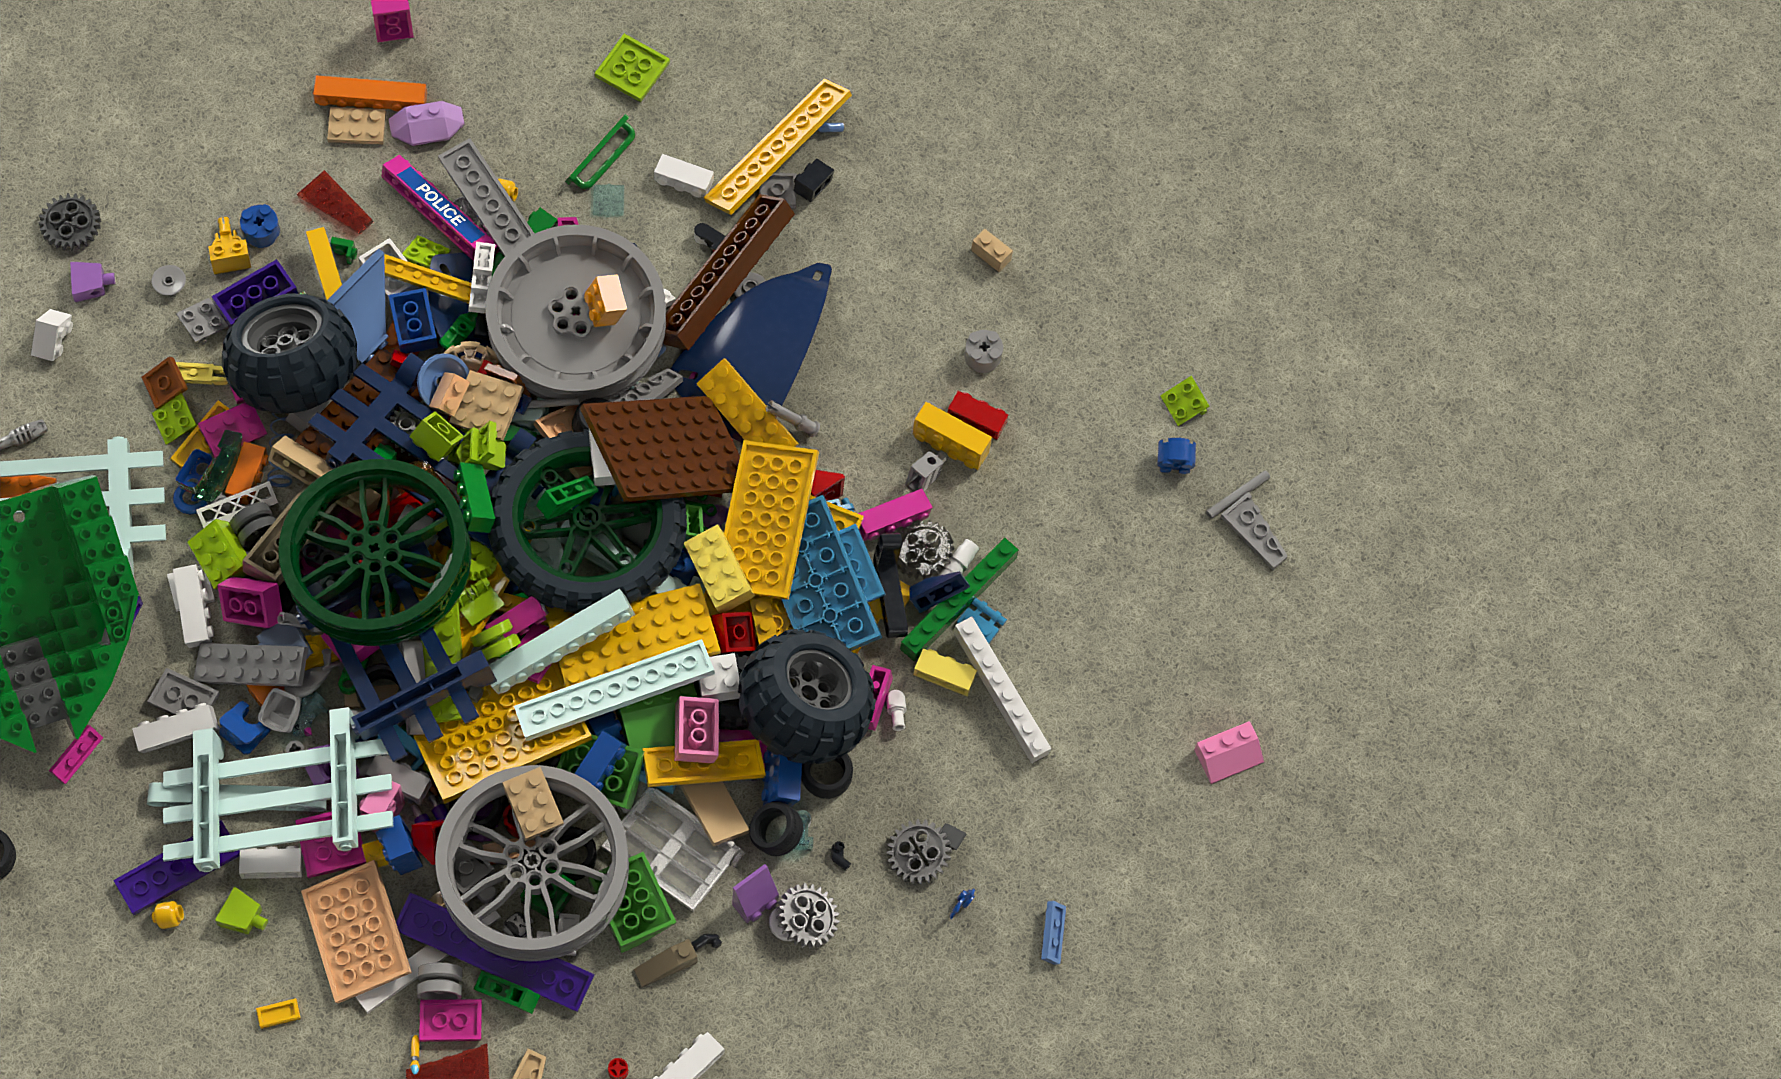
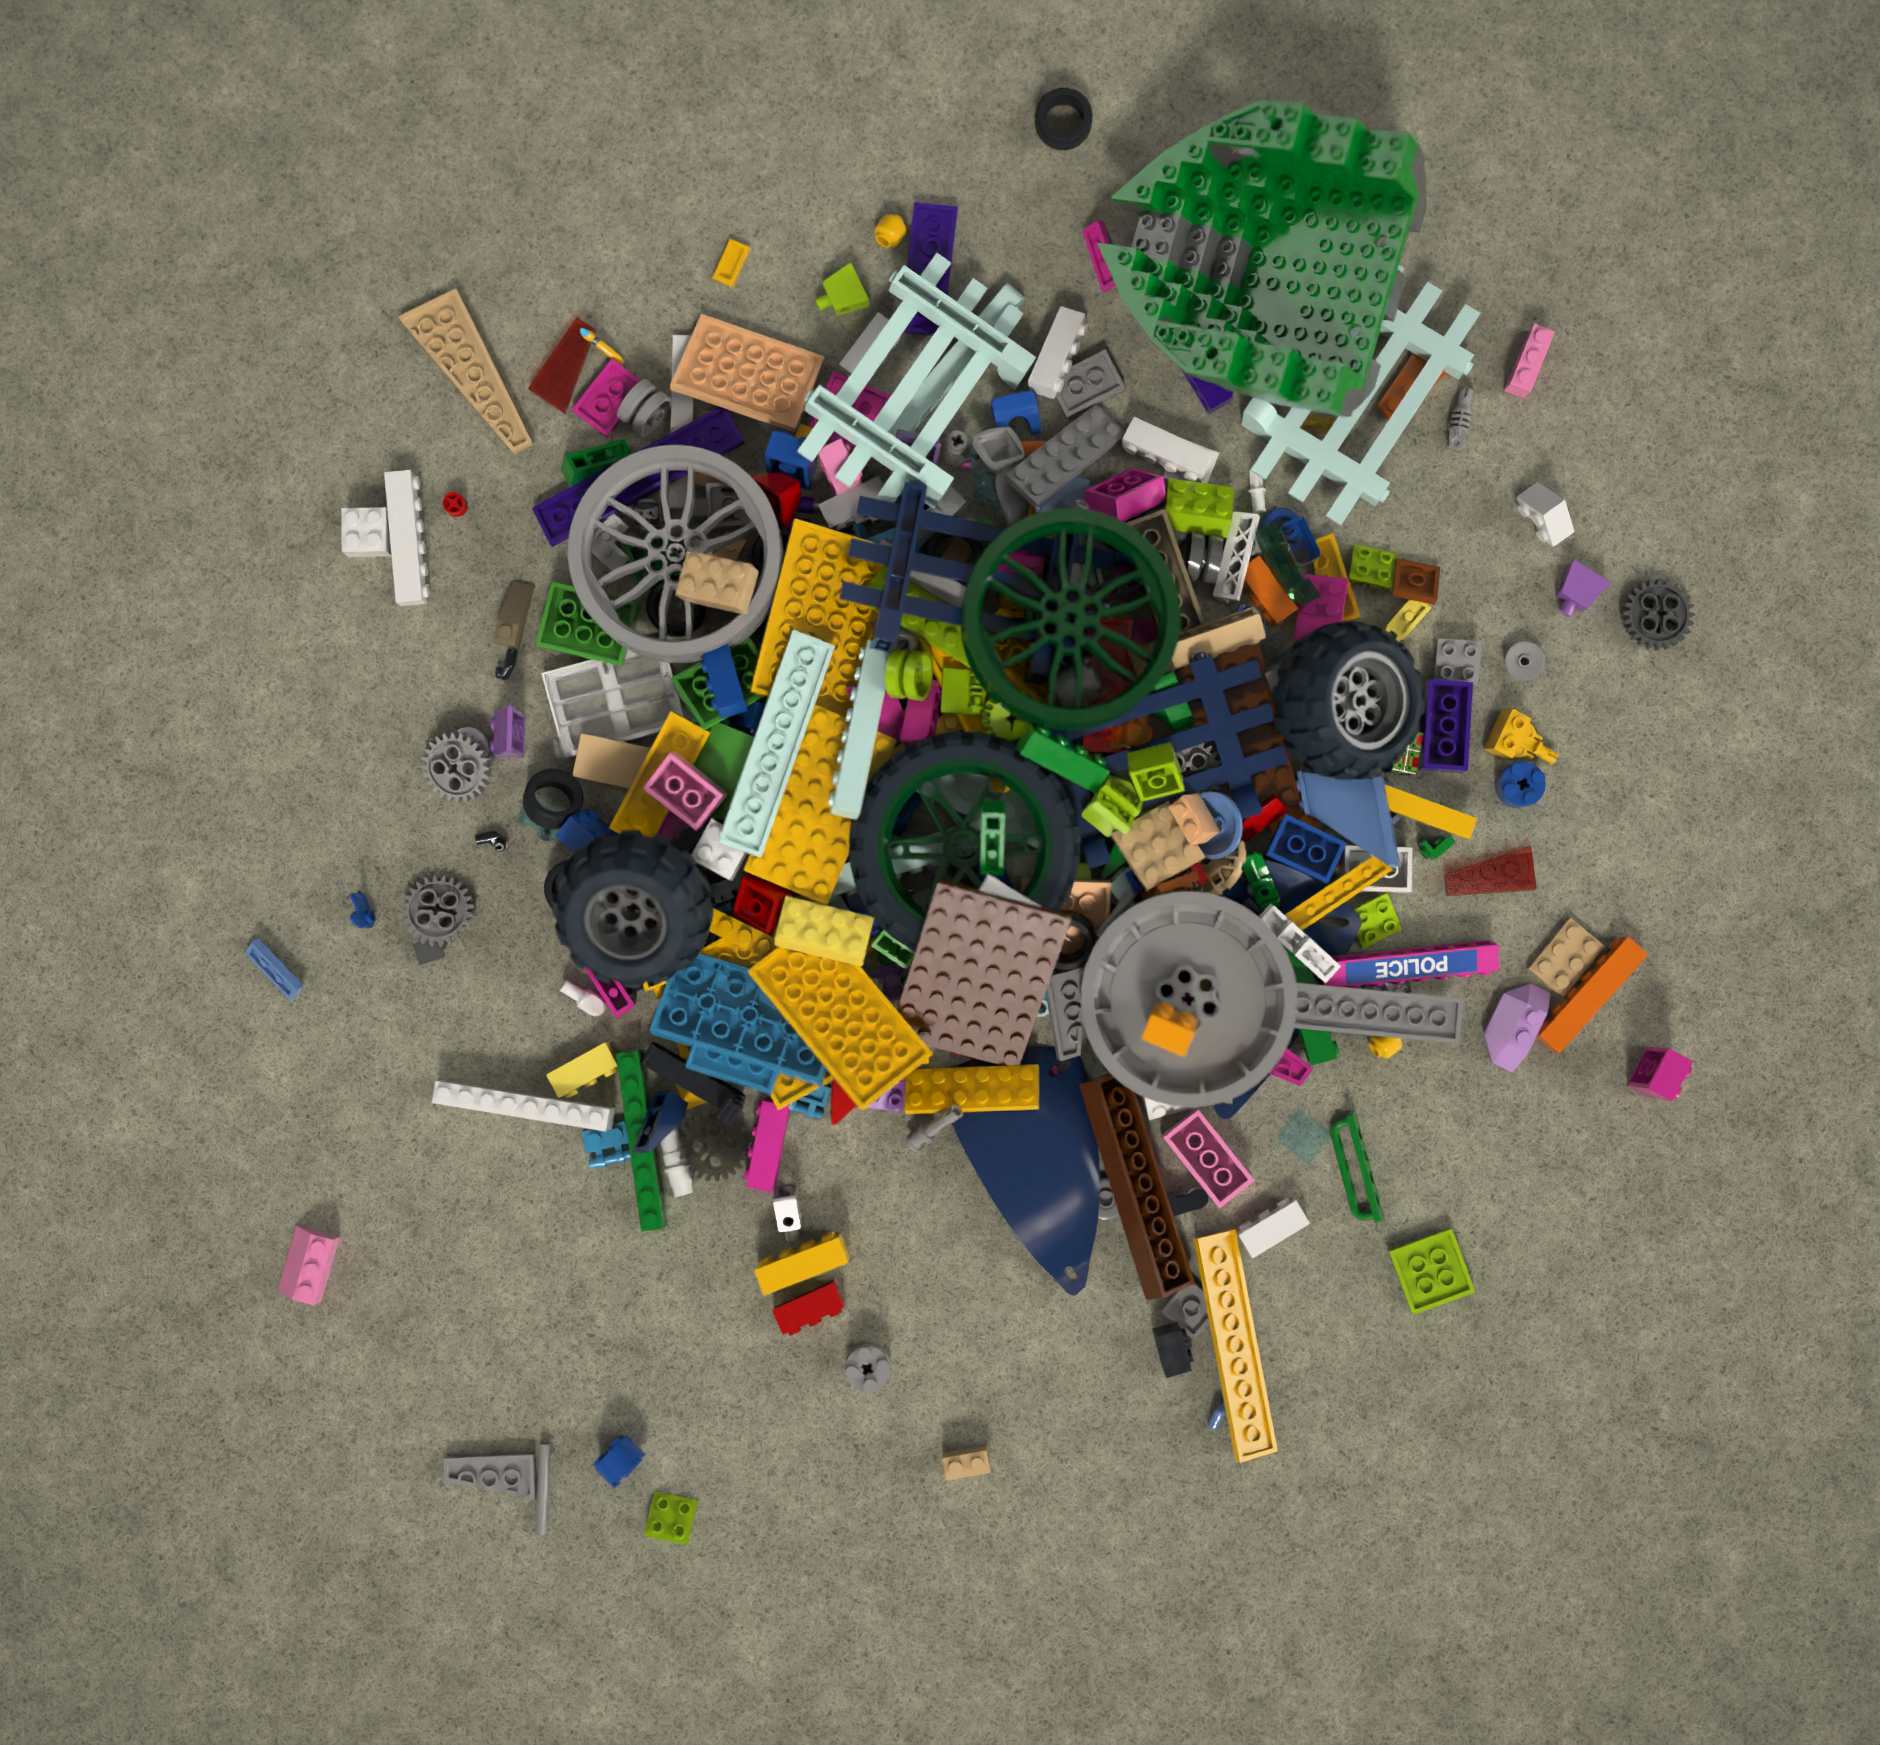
camera: 140 degrees right, 20 degrees up
(177, 529) = (1257, 493): none -> white axle
(672, 241) = (1207, 1158): none -> bright pink brick

